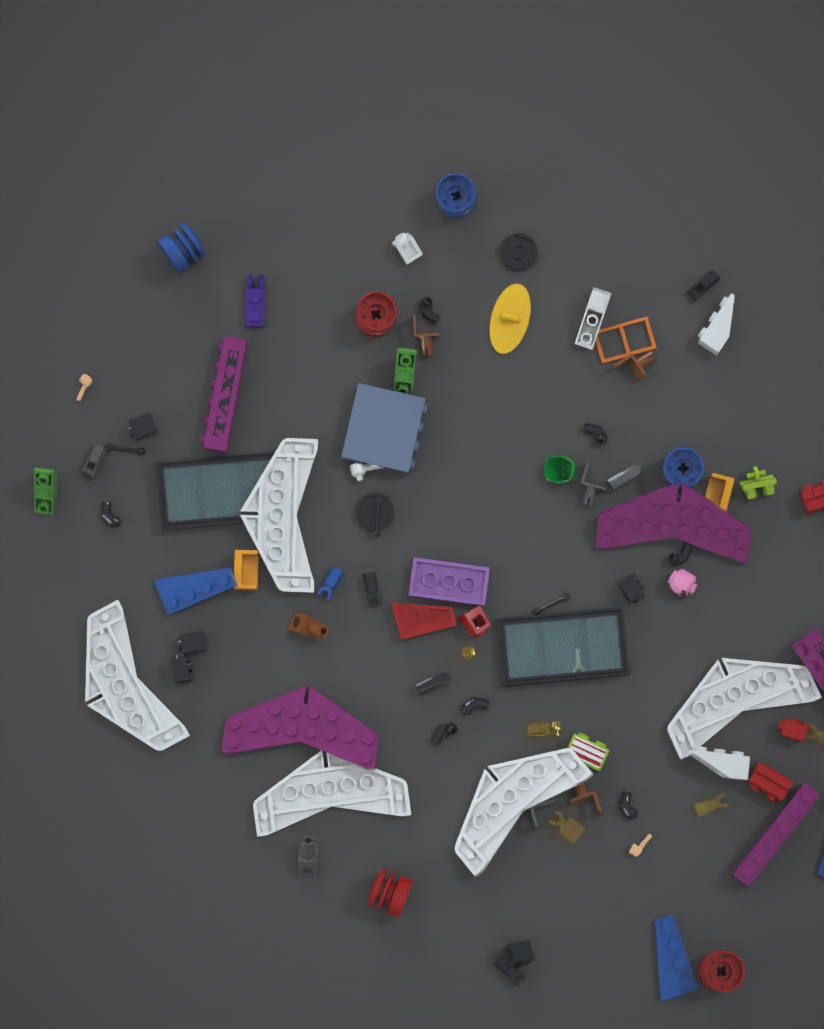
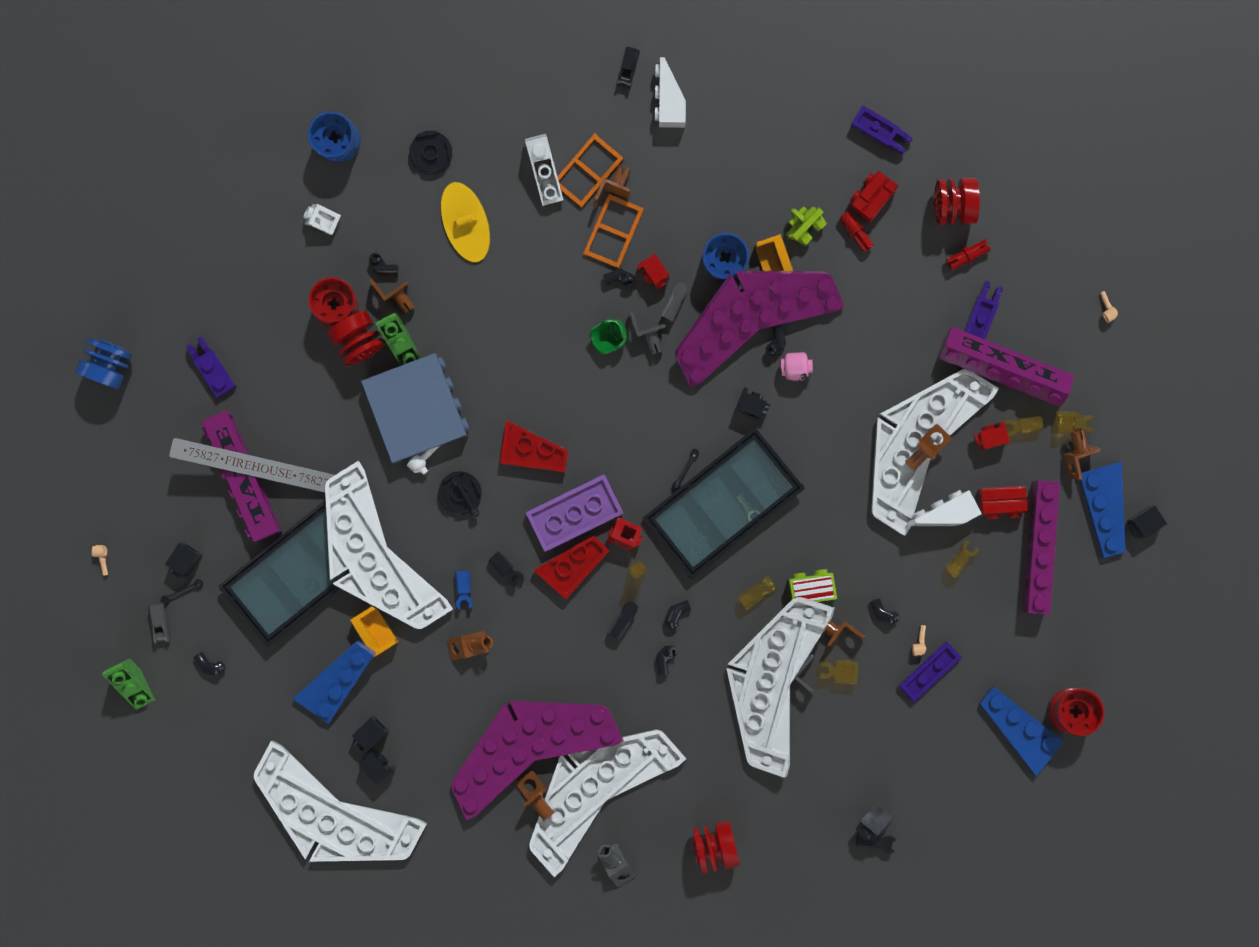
camera: 25 degrees left, 5 degrees up
(237, 390) = (249, 465): none -> light grey sticker
(283, 769) = (535, 797): none -> dark orange bracket
(375, 347) = (358, 342): none -> red wheel
(447, 515) = (530, 450): none -> red wing
(606, 385) = (628, 237): none -> orange window
(624, 445) = (654, 272): none -> red brick
(633, 872) = (929, 671): none -> dark purple tile
(739, 705) = (927, 448): none -> dark orange bracket
(792, 513) = (856, 231): none -> red axle

